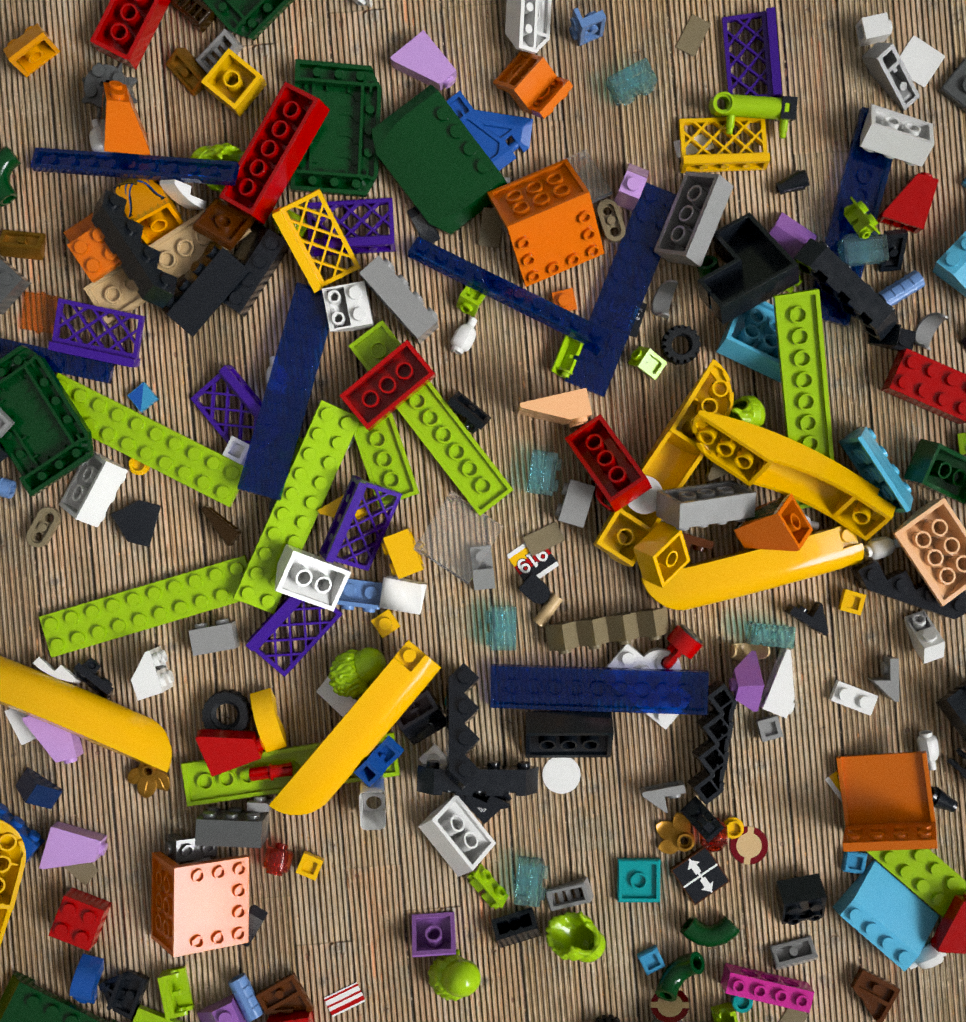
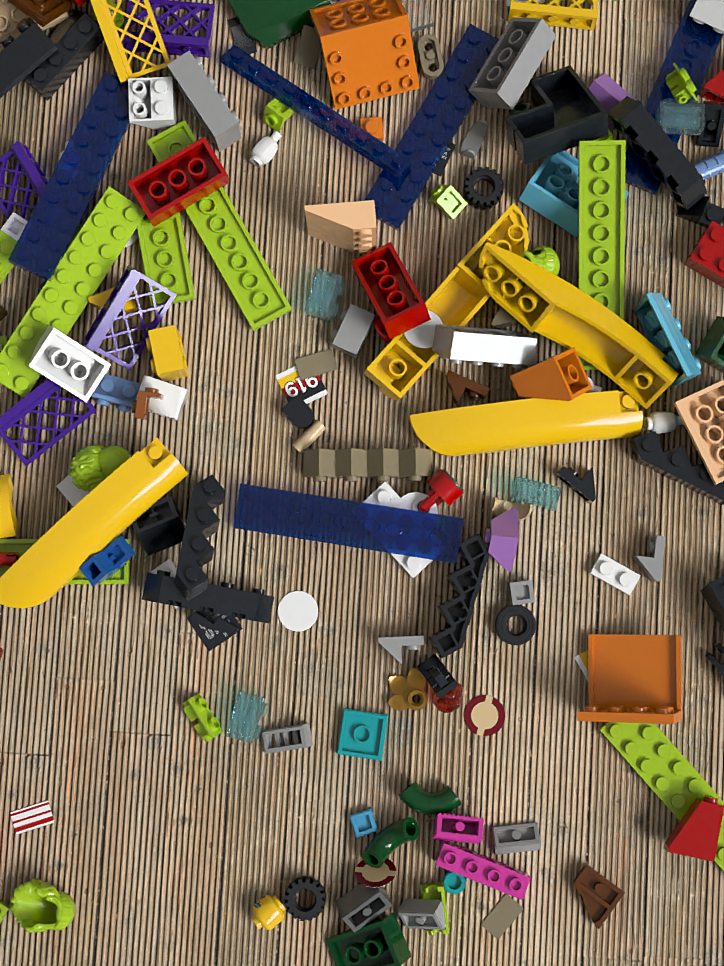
camera: 15 degrees right, 5 degrees down
(310, 865) = (19, 666): yellow plate -> none
(372, 818) = (86, 622): white piece -> none
(385, 623) = (139, 428): yellow plate -> none
(386, 608) = (141, 405): none -> dark orange bracket
(433, 934) = (137, 757): medium lavender slope -> none
(453, 976) = (150, 806): lime hair -> none
(457, 835) = (178, 656): white slope -> none
(458, 538) = (226, 345): clear piece -> none
(475, 416) = (264, 229): black hinge -> none
(484, 576) = (248, 384): light grey slope -> none
(502, 627) = (258, 447): clear light blue brick -> none
(515, 927) = (224, 765): black brick -> none
(564, 361) = (364, 183): lime hinge -> none
(568, 734) = (310, 568): black slope -> none
(575, 937) = (285, 782): lime hair -> none
(631, 187) = (453, 25): lavender slope -> none
(662, 554) = (432, 389): yellow brick -> none
(699, 874) = (428, 738): black tile -> none
(735, 827) = (471, 693): yellow plate -> none
(740, 955) = (458, 828): none -> dark pink brick
(770, 771) = (529, 625): none -> black tyre
(779, 690) = (538, 553): white slope -> none
(794, 182) = (619, 45): black cone -> none
(800, 899) = (531, 779): black slope -> none
(852, 602) = (625, 473): yellow plate -> none
(854, 862) = (593, 748): dark azure tile -> none
(887, 914) = (621, 809): medium azure slope -> none
(924, 637) = (697, 520): white slope -> none
(928, 958) = (658, 862): white plant -> none
(929, 743) = (689, 638): white plant -> none
(942, 800) = (693, 695): black cone -> none

